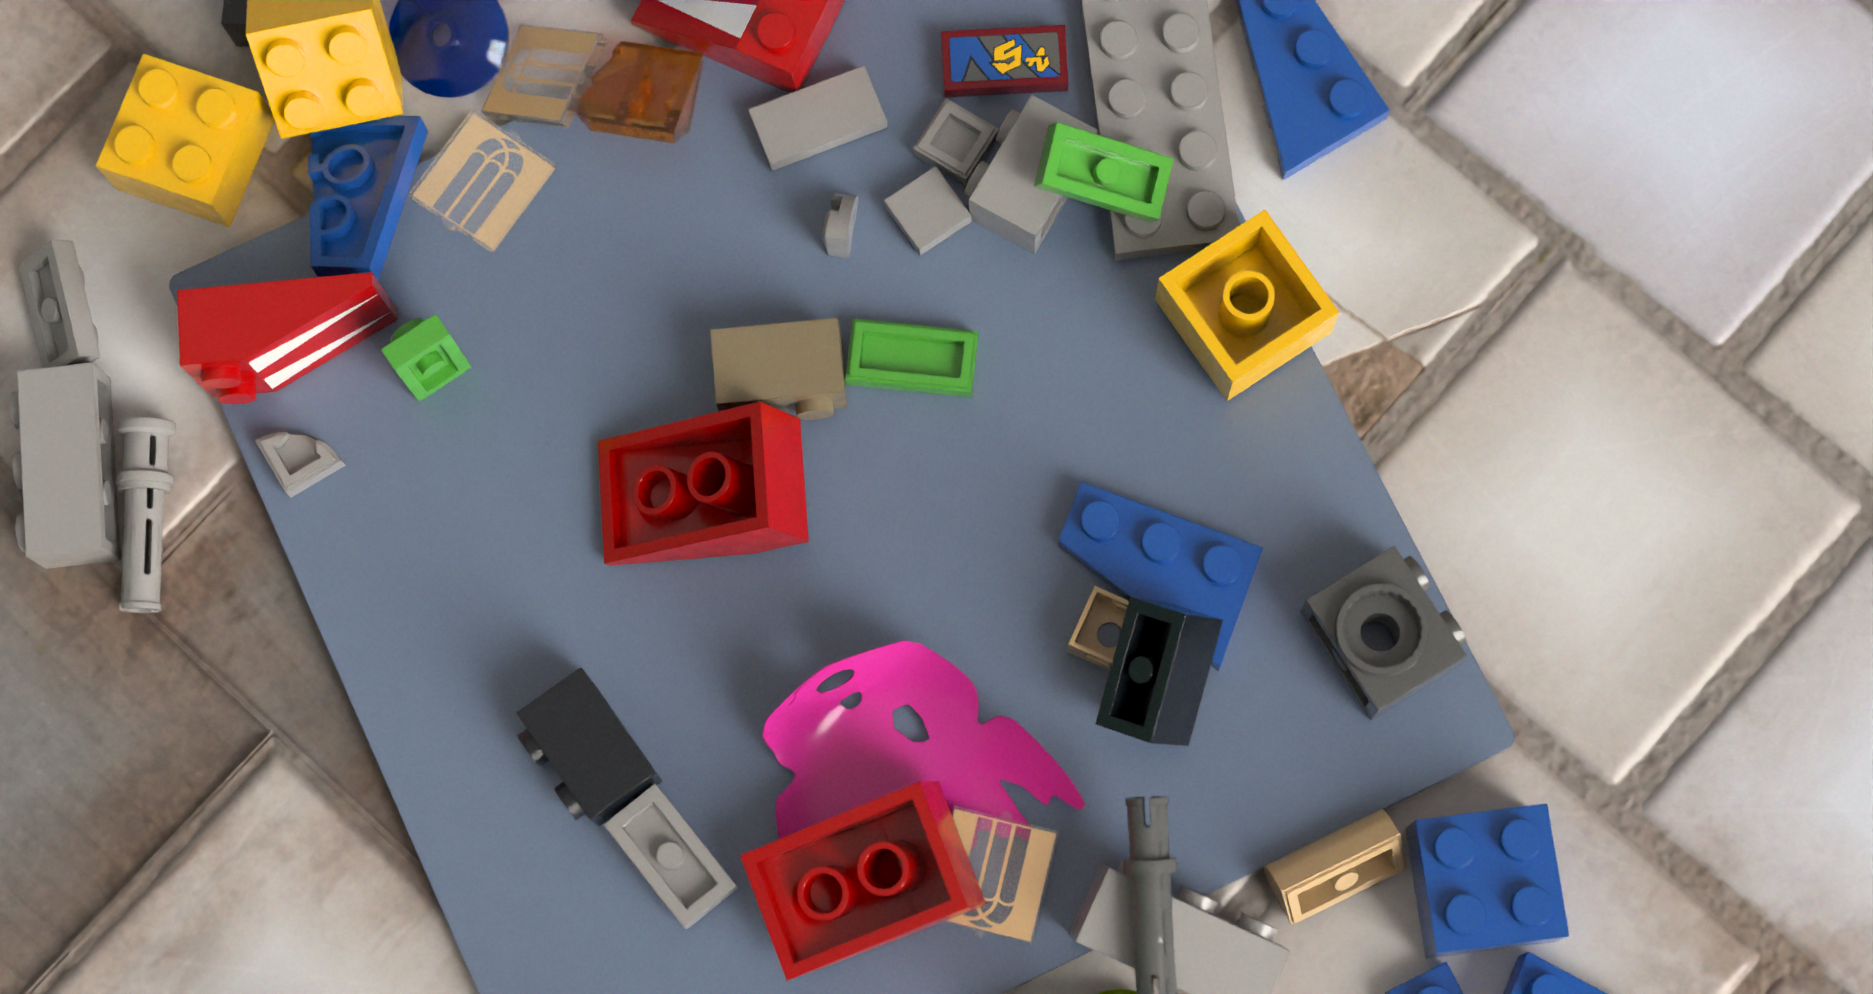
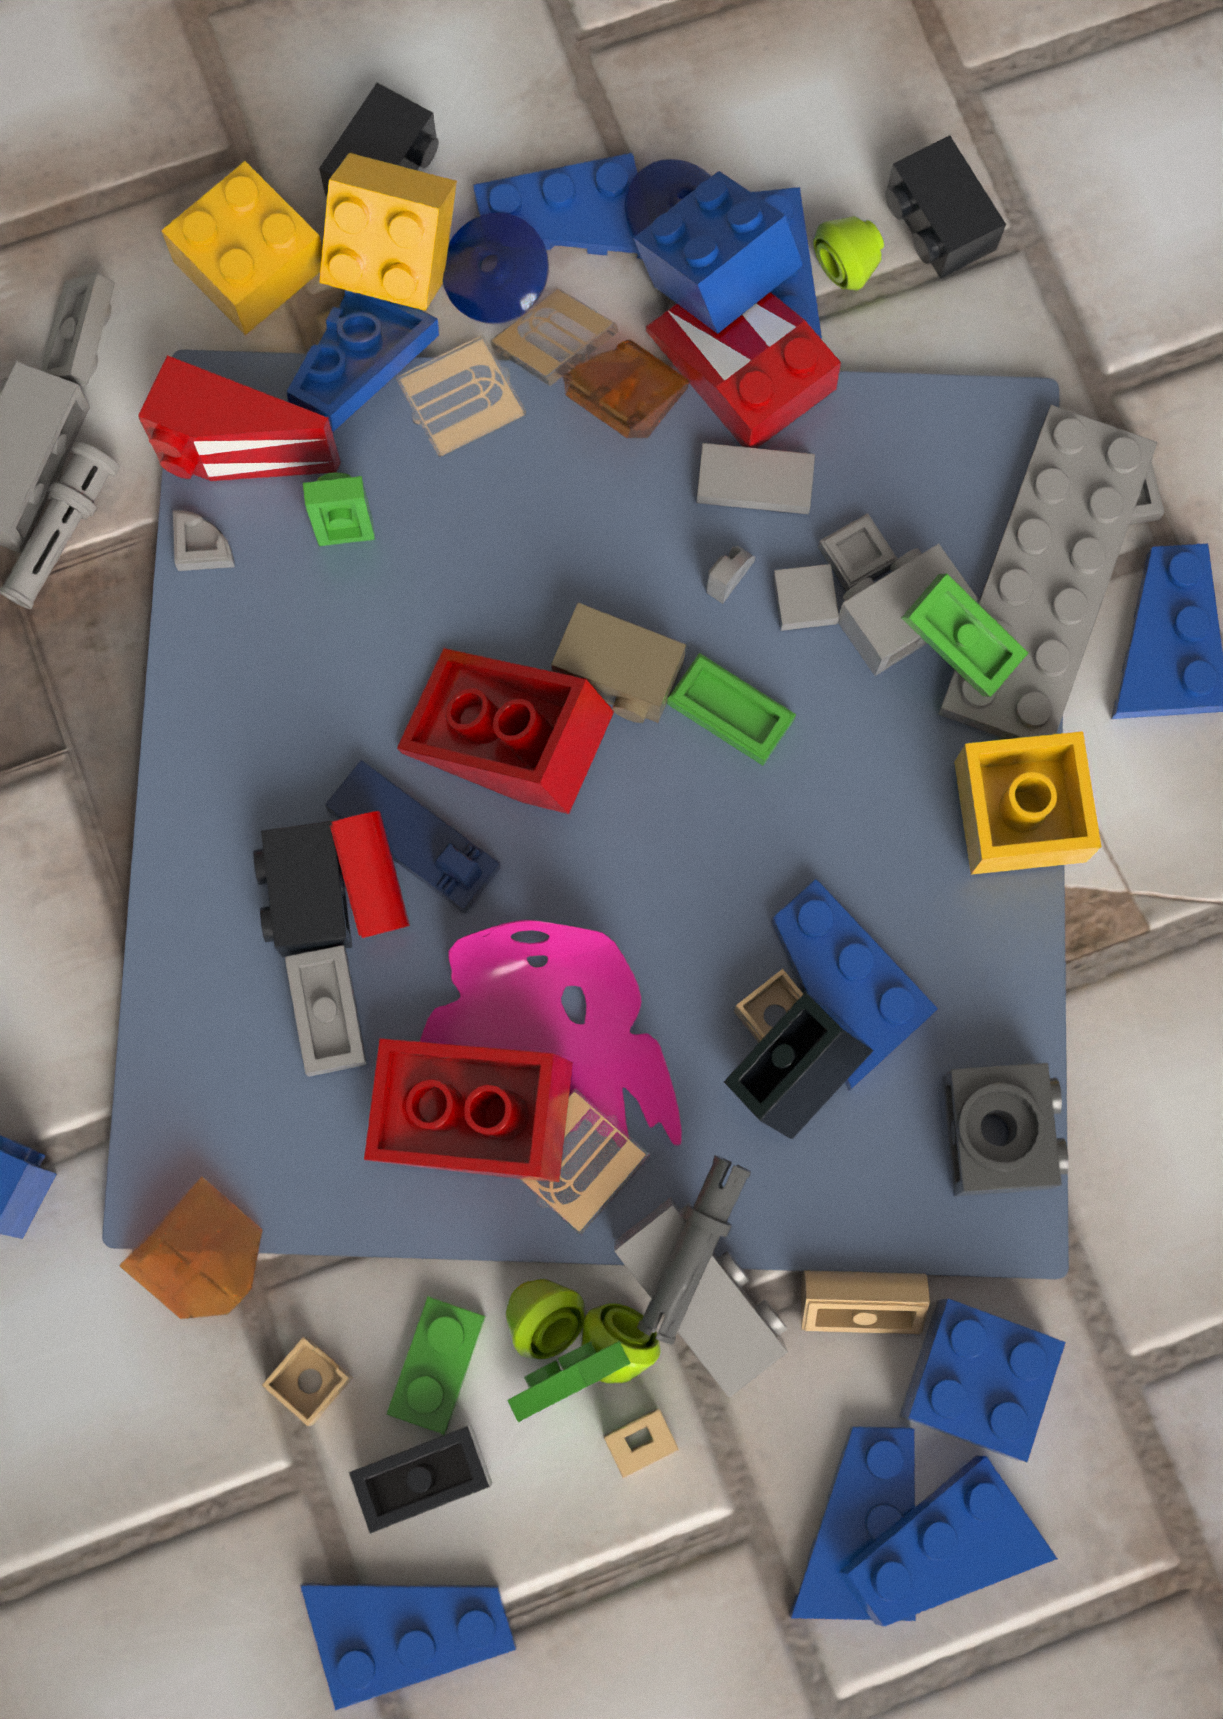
camera: 20 degrees right, 0 degrees up
(646, 700) = (369, 874): none -> red brick
(665, 641) = (417, 837): none -> dark blue hinge
(1004, 61) = (931, 507): tile -> none

